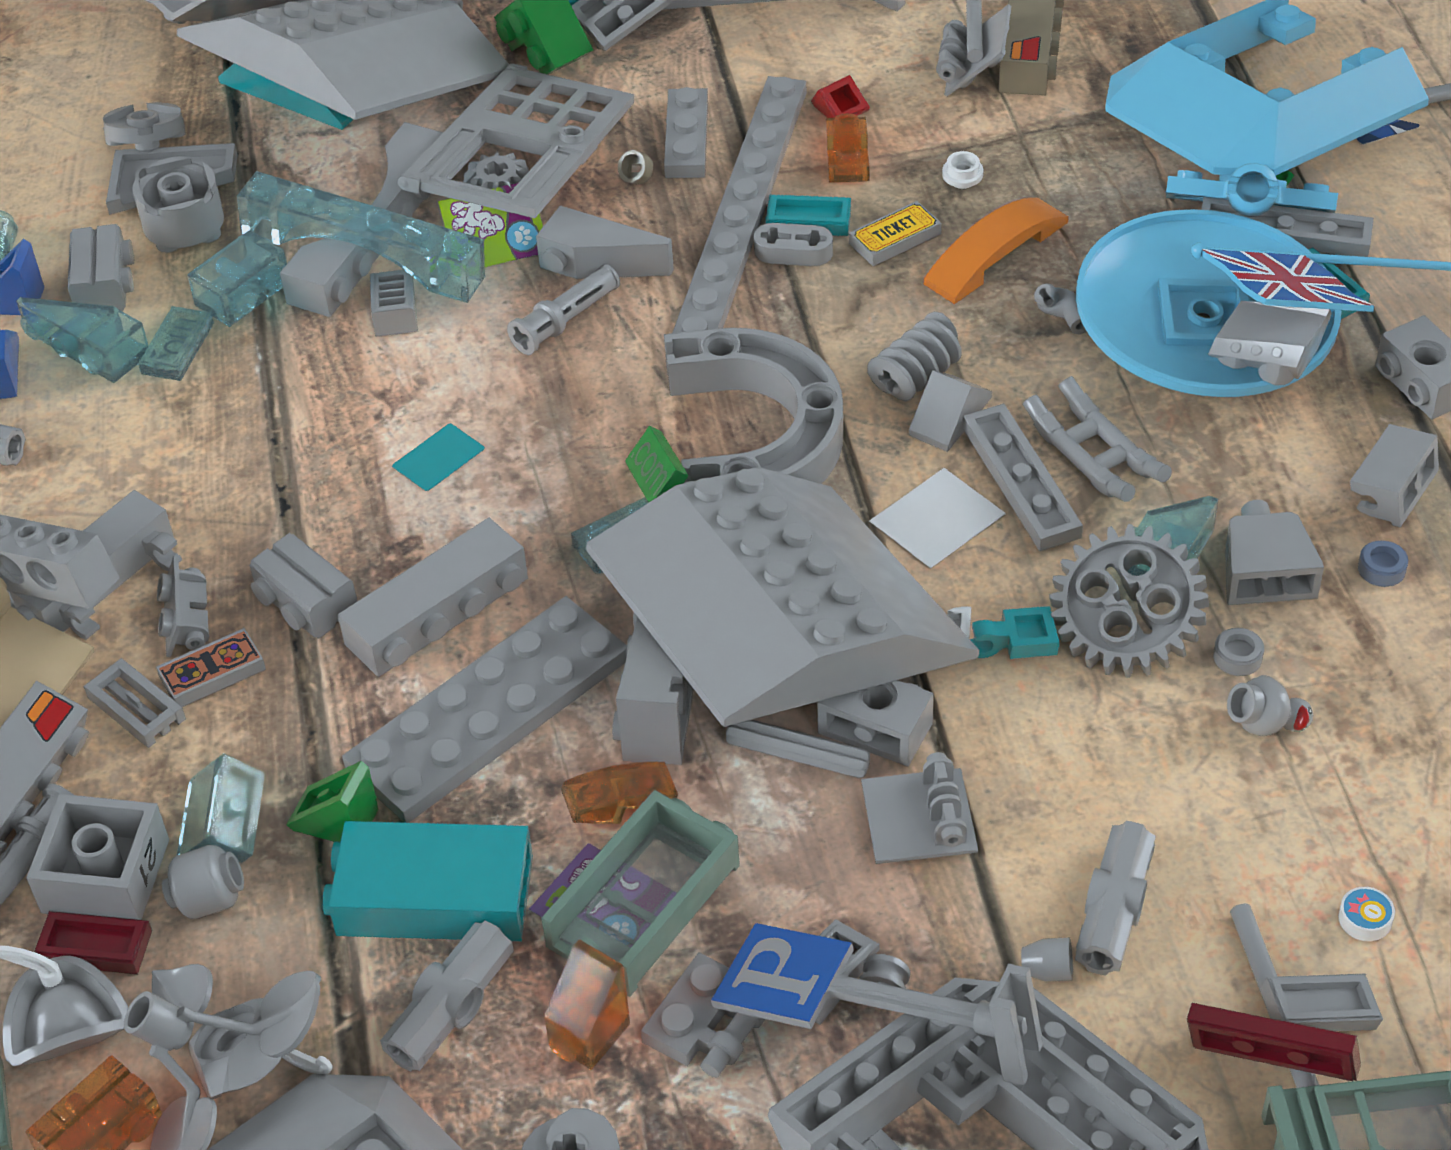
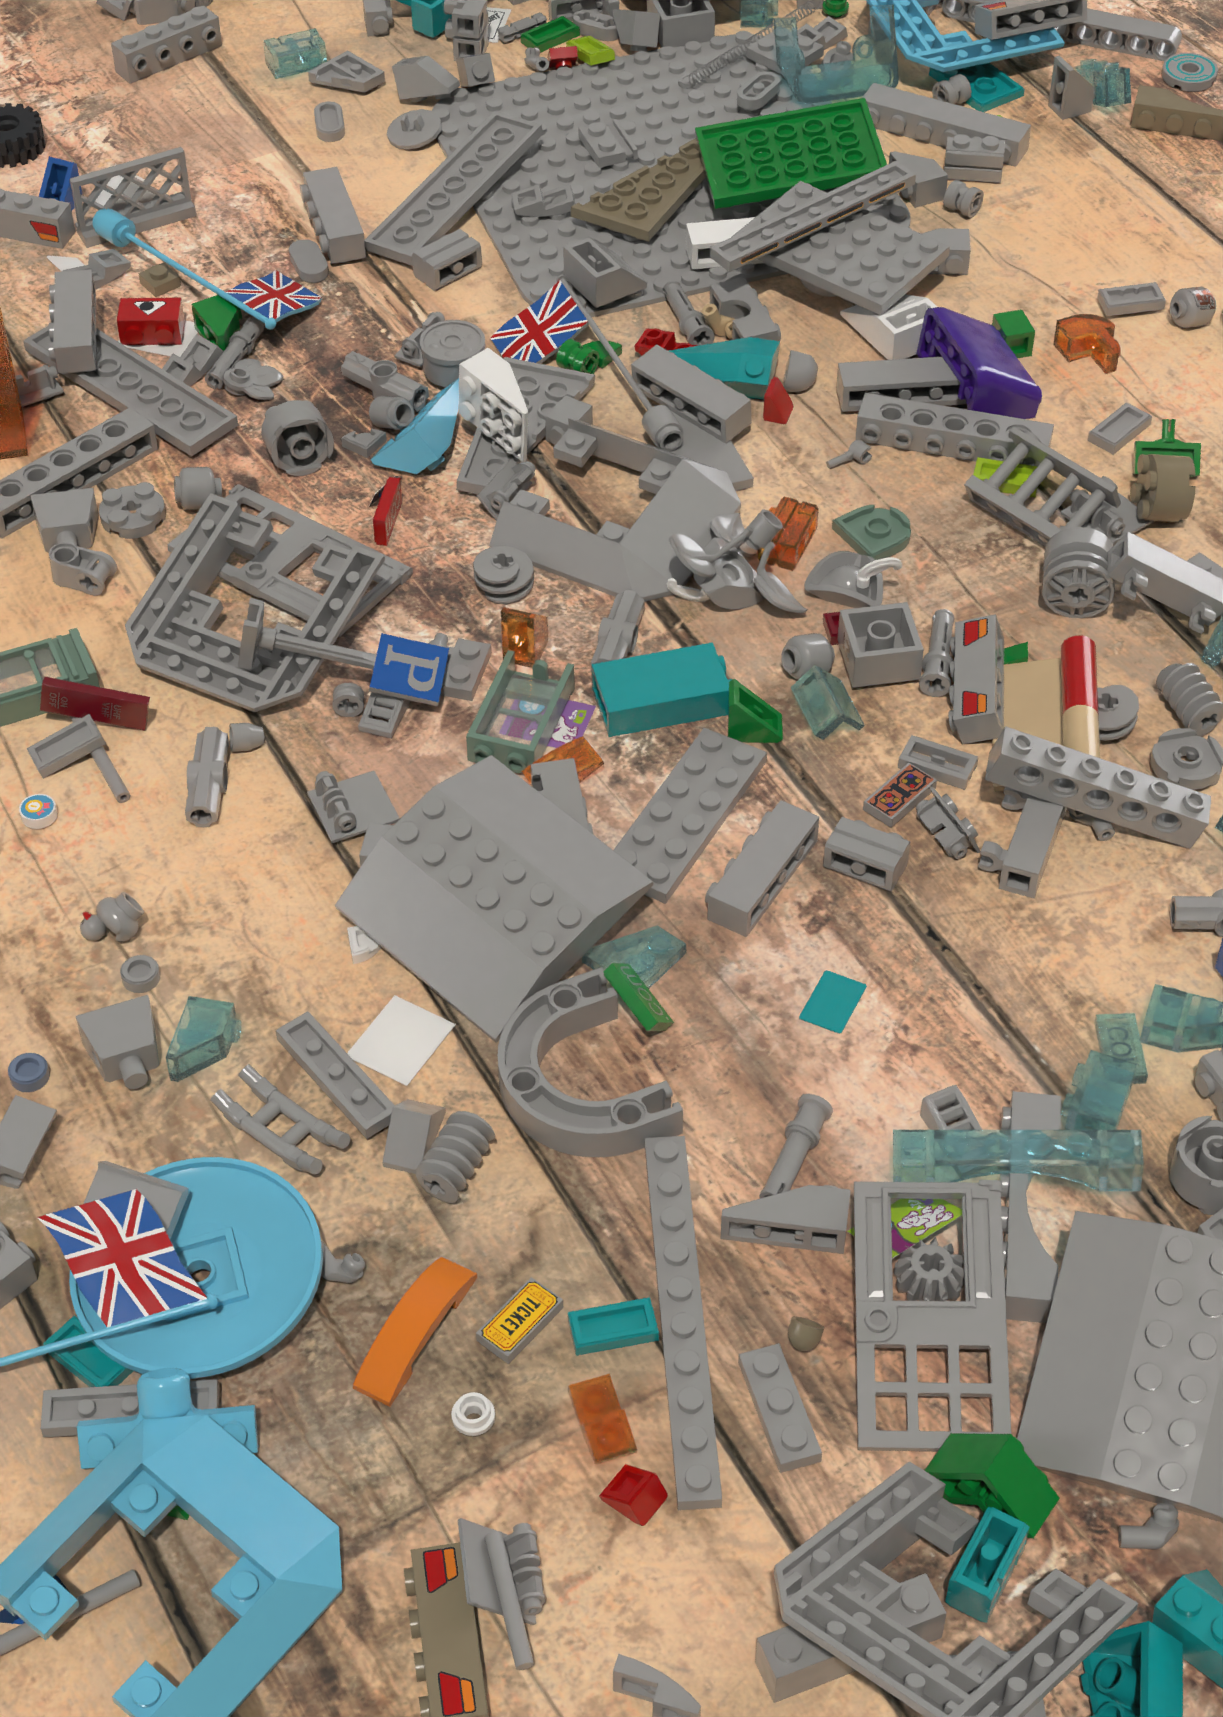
camera: 160 degrees right, 0 degrees up
(793, 244) = (614, 1281): light grey beam -> none
(1021, 631) = (307, 941): teal plate -> none
(1090, 619) = (227, 966): light grey gear -> none

